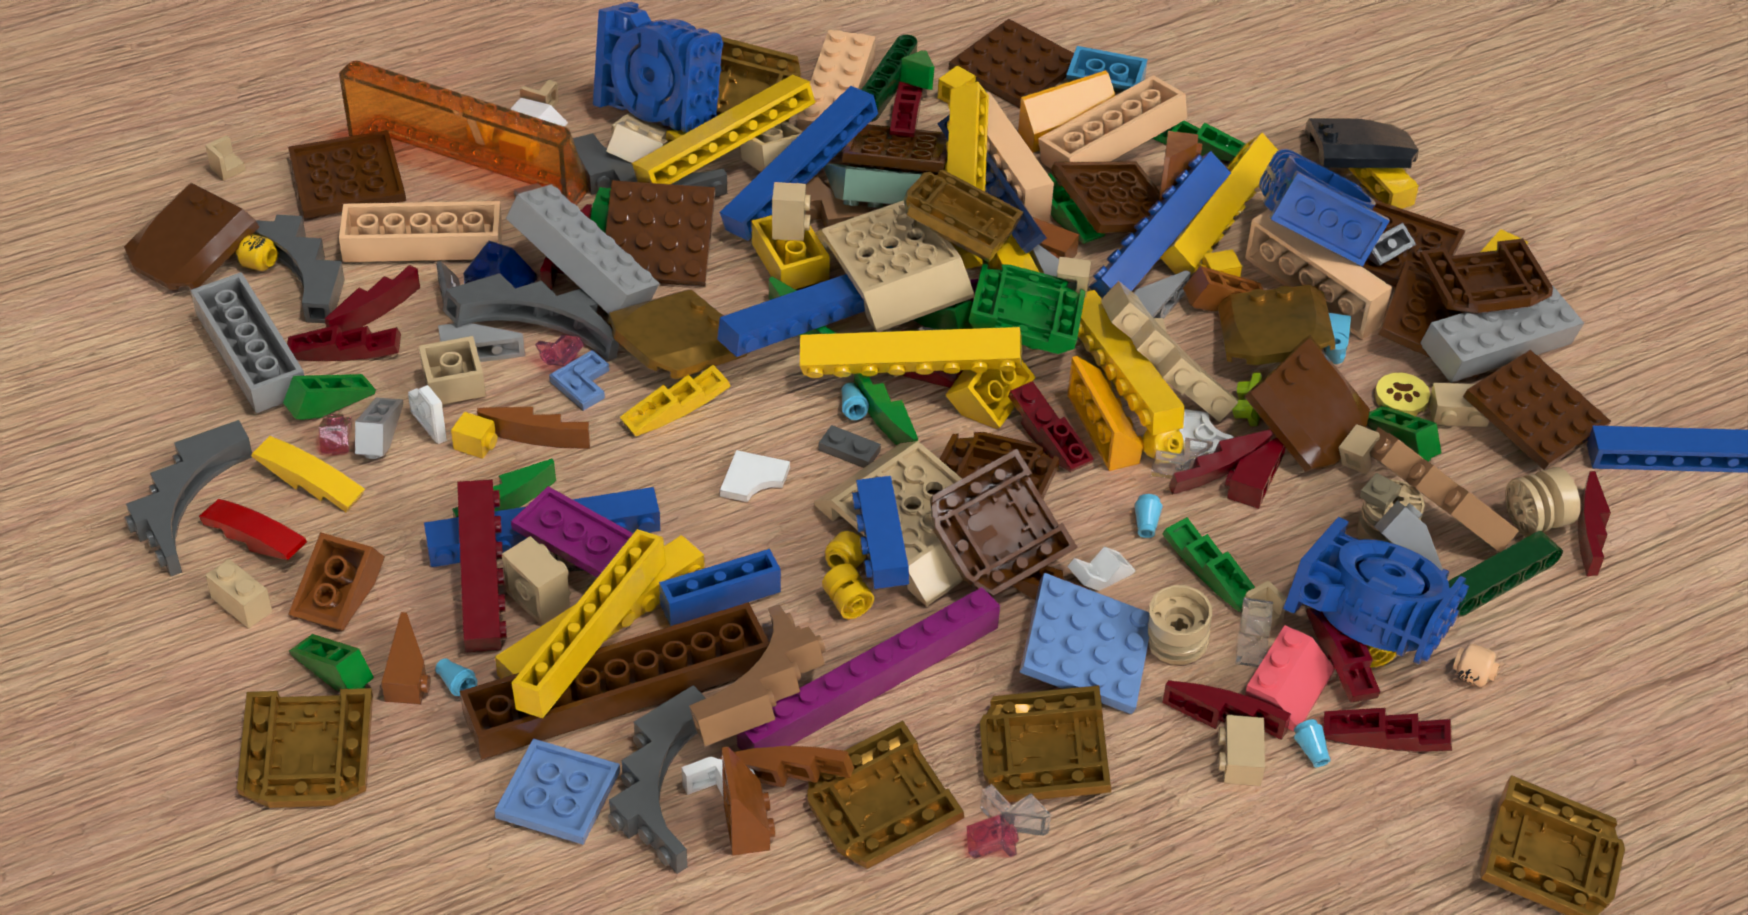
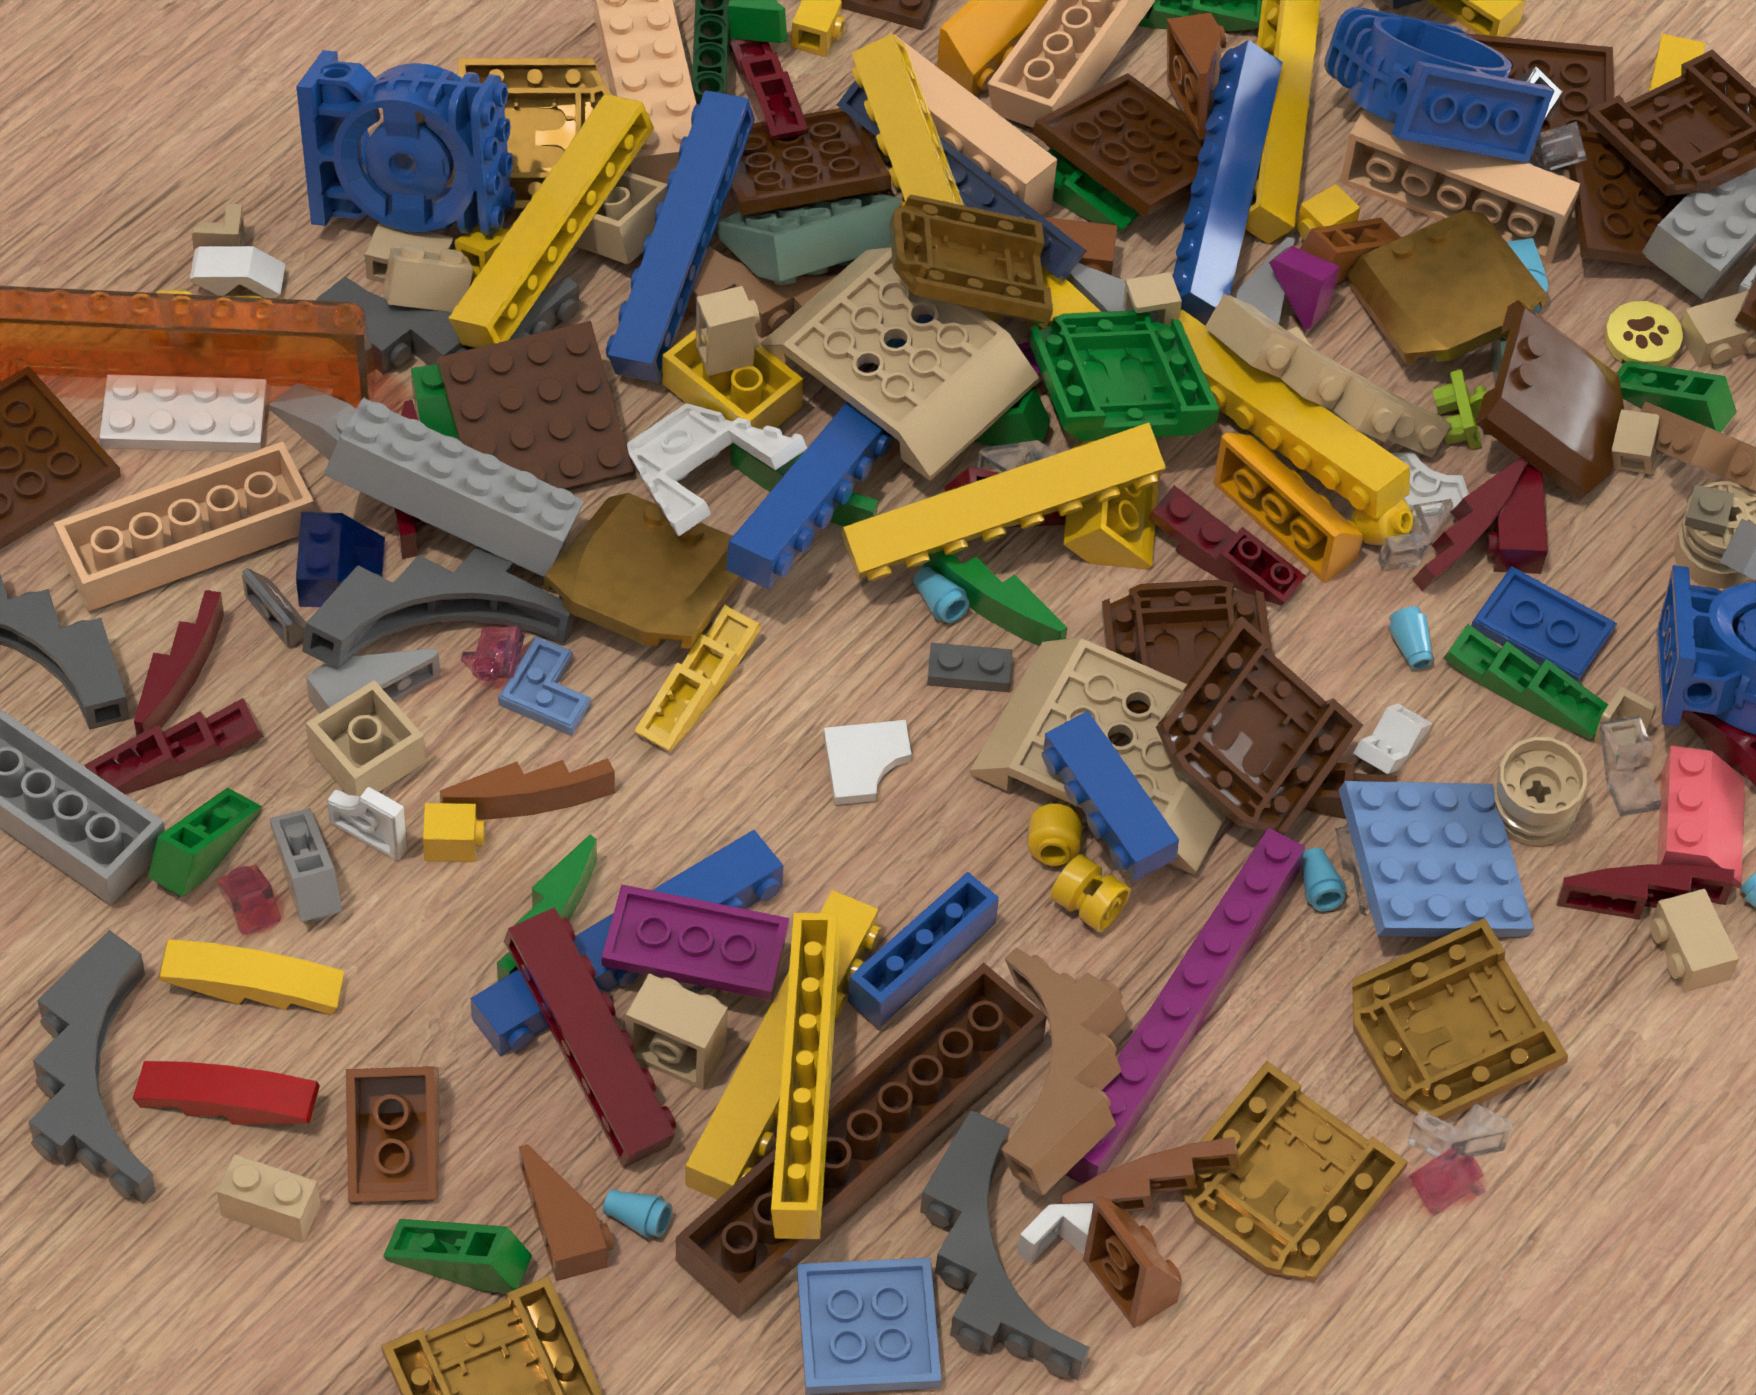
camera: 25 degrees left, 10 degrees up
(461, 178) = (183, 413): none -> white plate
(741, 272) = (689, 439): none -> white wing
(1006, 635) = (1322, 881): none -> medium azure cone
(1184, 299) = (1306, 282): none -> magenta slope
(1244, 535) = (1544, 624): none -> blue tile
(1392, 268) = (1558, 148): none -> clear slope

